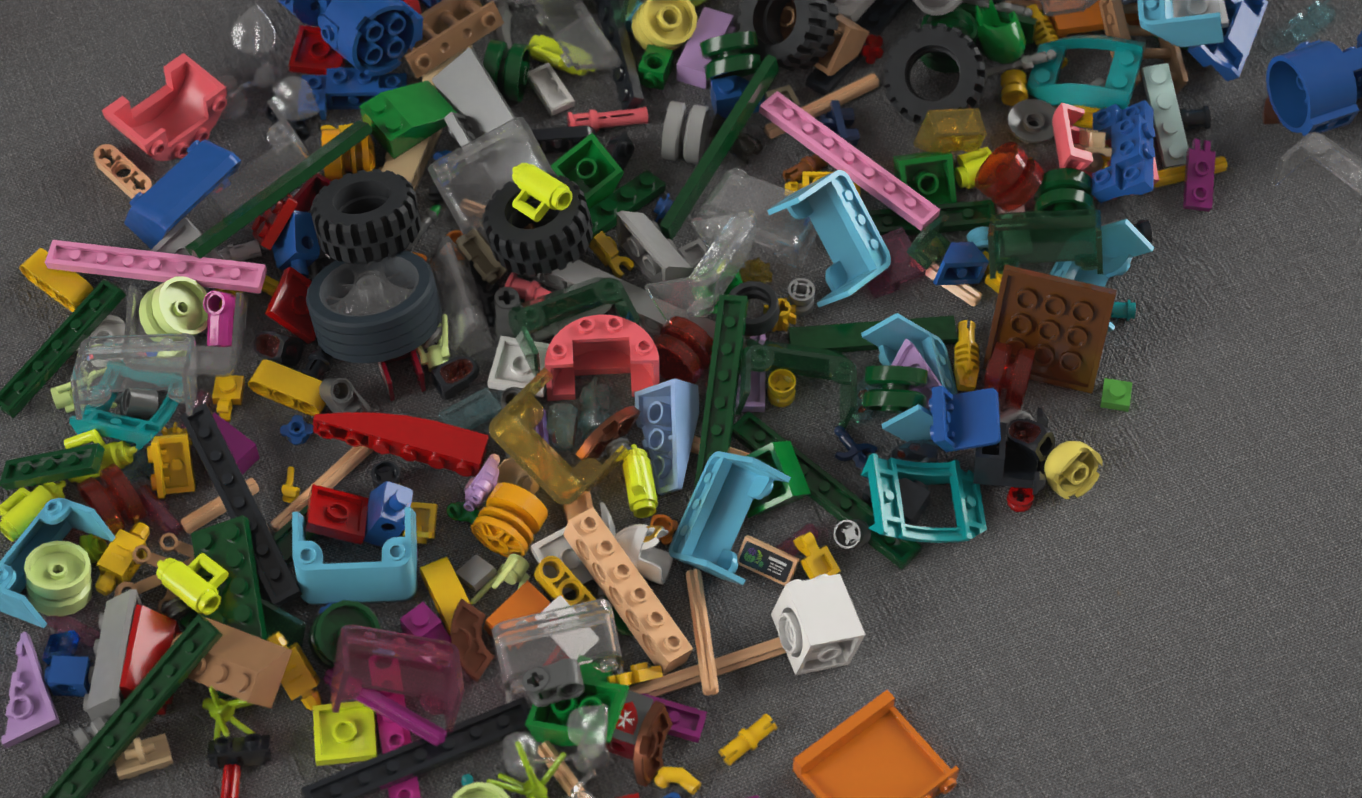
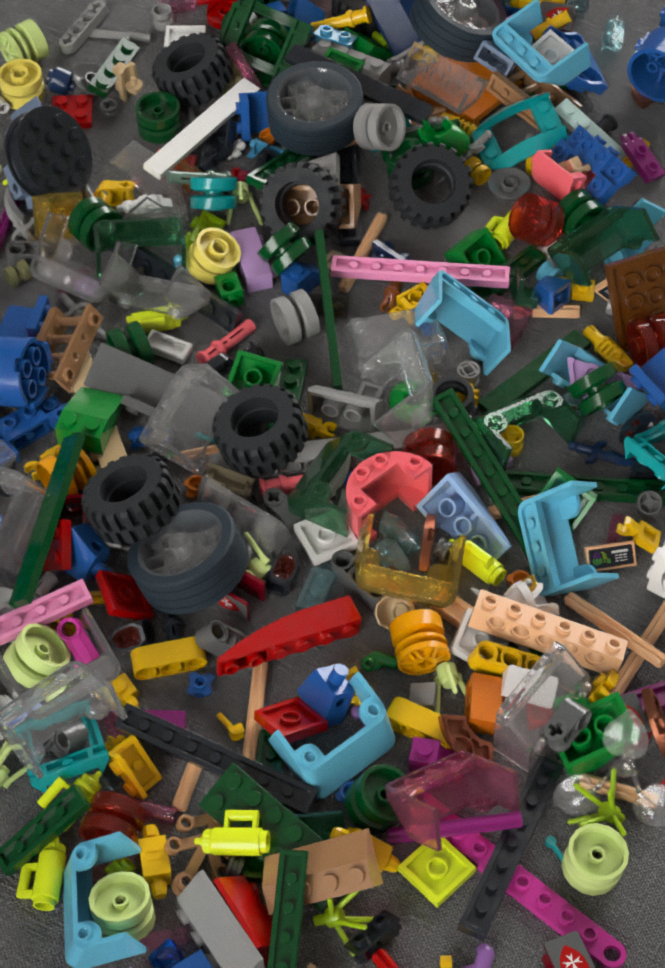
camera: 35 degrees left, 5 degrees down
(385, 471) = (298, 671): black wheel -> none
(480, 487) = (380, 631): lavender helmet -> none
(542, 187) = (251, 397): neon yellow piece -> none
(662, 207) = (322, 375): blue plate -> none
(951, 131) = (472, 214): clear yellow slope -> none

